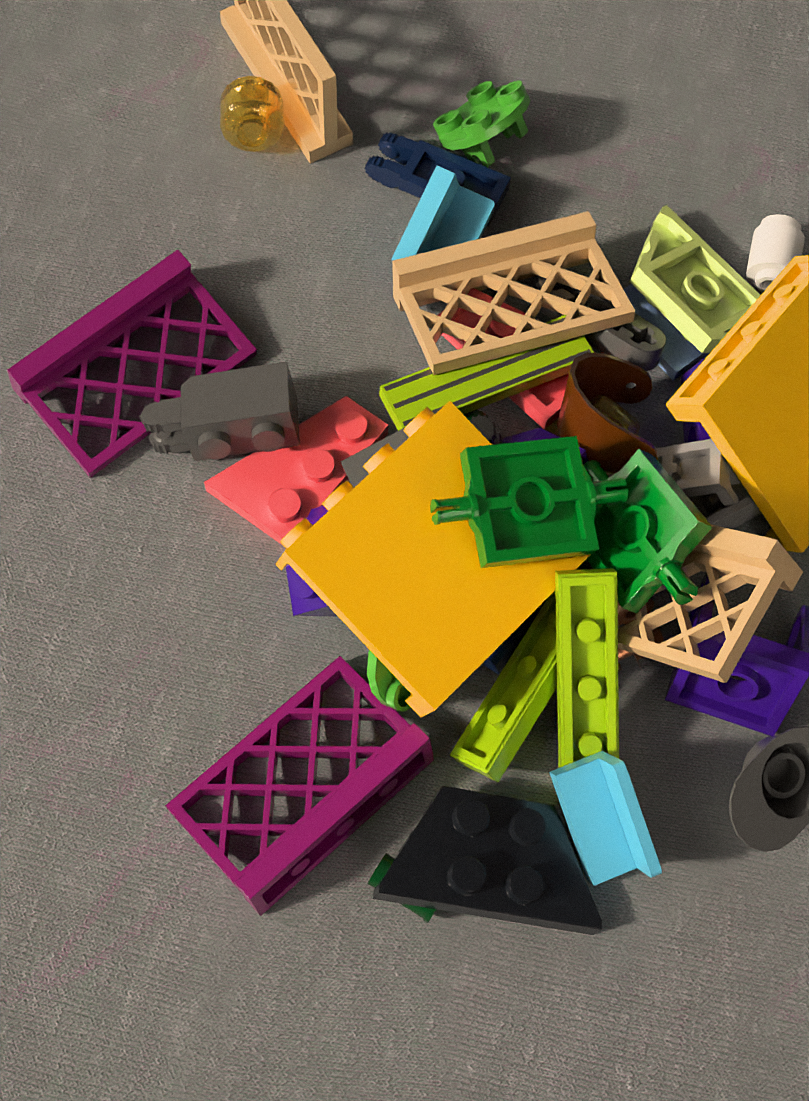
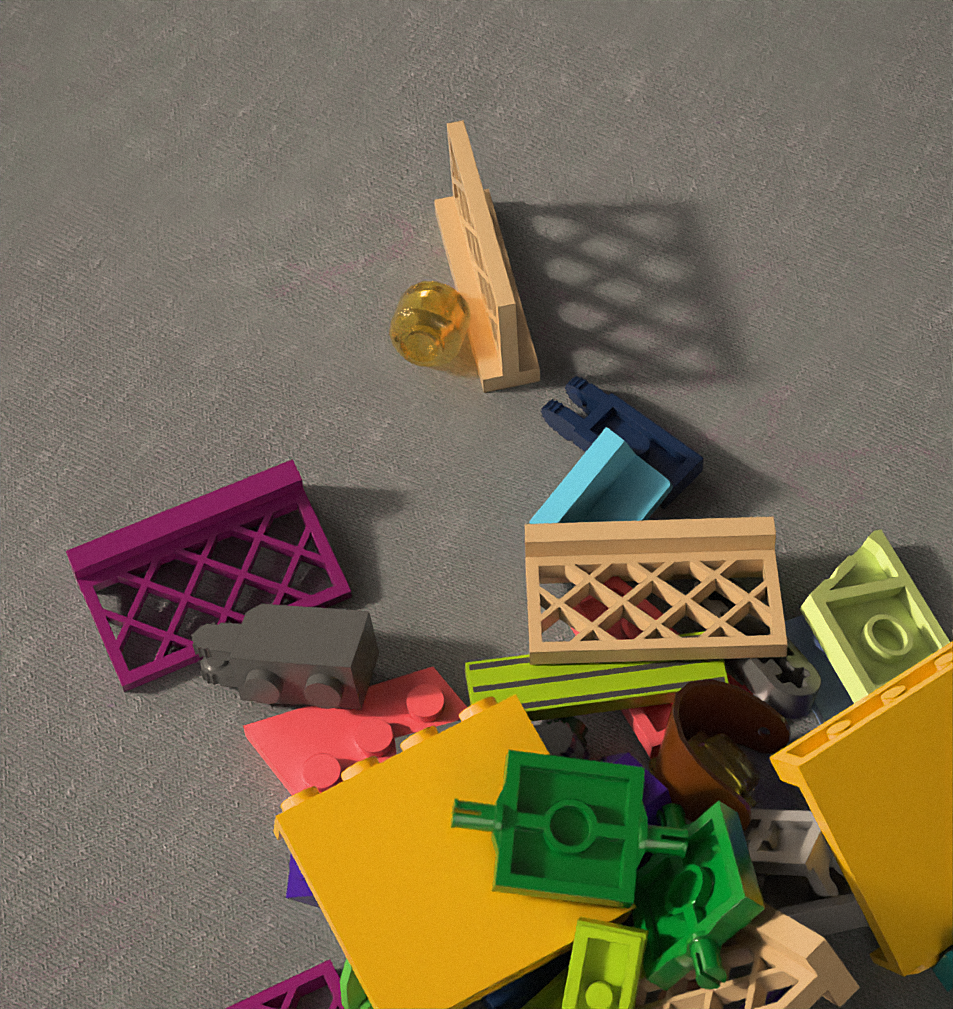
camera: 25 degrees right, 10 degrees down
(483, 117) = (698, 378): bright green plate -> none

